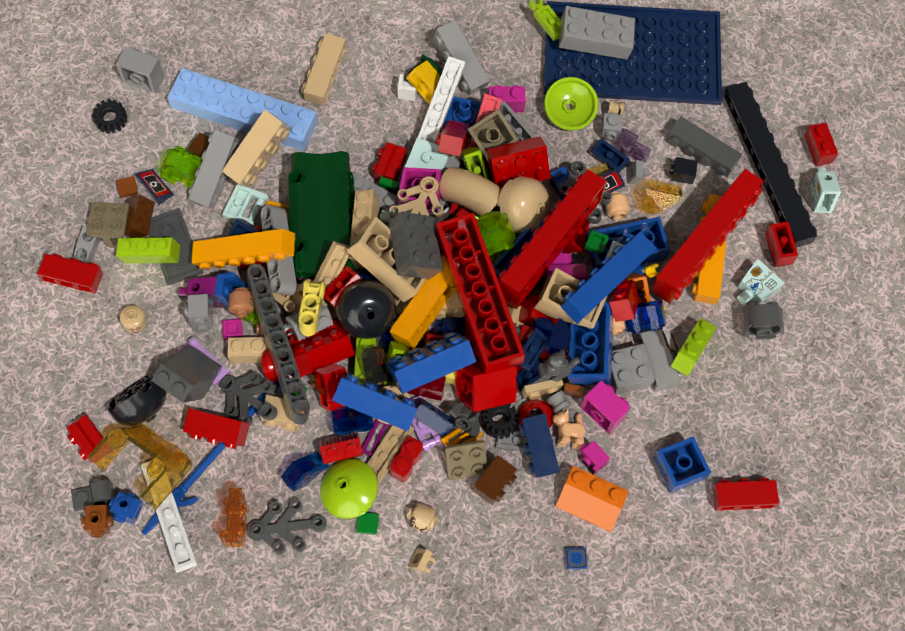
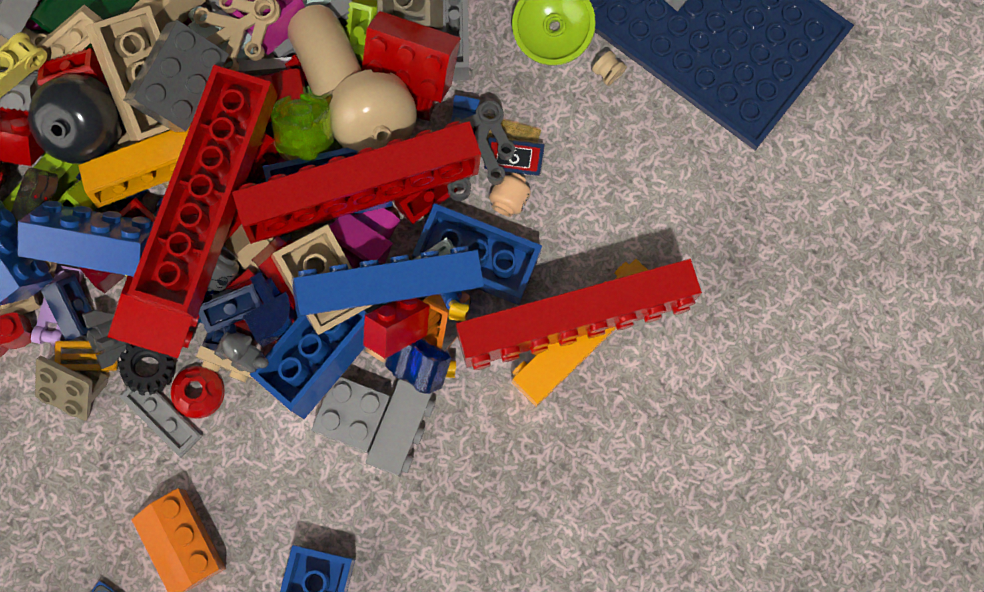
camera: 35 degrees right, 10 degrees up
(495, 480) = (78, 438): reddish brown brick -> none
(539, 446) = (161, 433): dark blue brick -> none
(558, 402) = (234, 394): light grey wheel -> none
(569, 431) = (221, 442): light nougat animal -> none
(573, 390) = (265, 396): dark orange tile -> none
(593, 457) = (220, 493): dark pink brick -> none
(596, 242) = (432, 225): green tile -> none
(605, 407) = (278, 442): dark pink brick -> none
(610, 155) = (553, 124): dark blue slope -> none
(611, 126) = (584, 86): light grey brick -> none
(628, 145) = (586, 125): clear purple brick -> none
(636, 172) = (570, 169): light grey tile -> none
(659, 196) = (574, 217): clear yellow slope -> none
(669, 340) = (430, 413): sticker -> none
(683, 170) = (632, 205): black brick -> none
(693, 347) = (450, 444): lime brick -> none
(703, 146) = (683, 191): dark grey brick -> none
(759, 284) = (607, 419): light aqua torso -> none
(763, 320) = (569, 473): dark grey brick -> none
(769, 163) = (752, 274): black brick -> none
(781, 244) = (678, 388): red brick -> none
(821, 144) = (844, 291): red brick -> none
(824, 191) = (796, 356): light aqua torso -> none

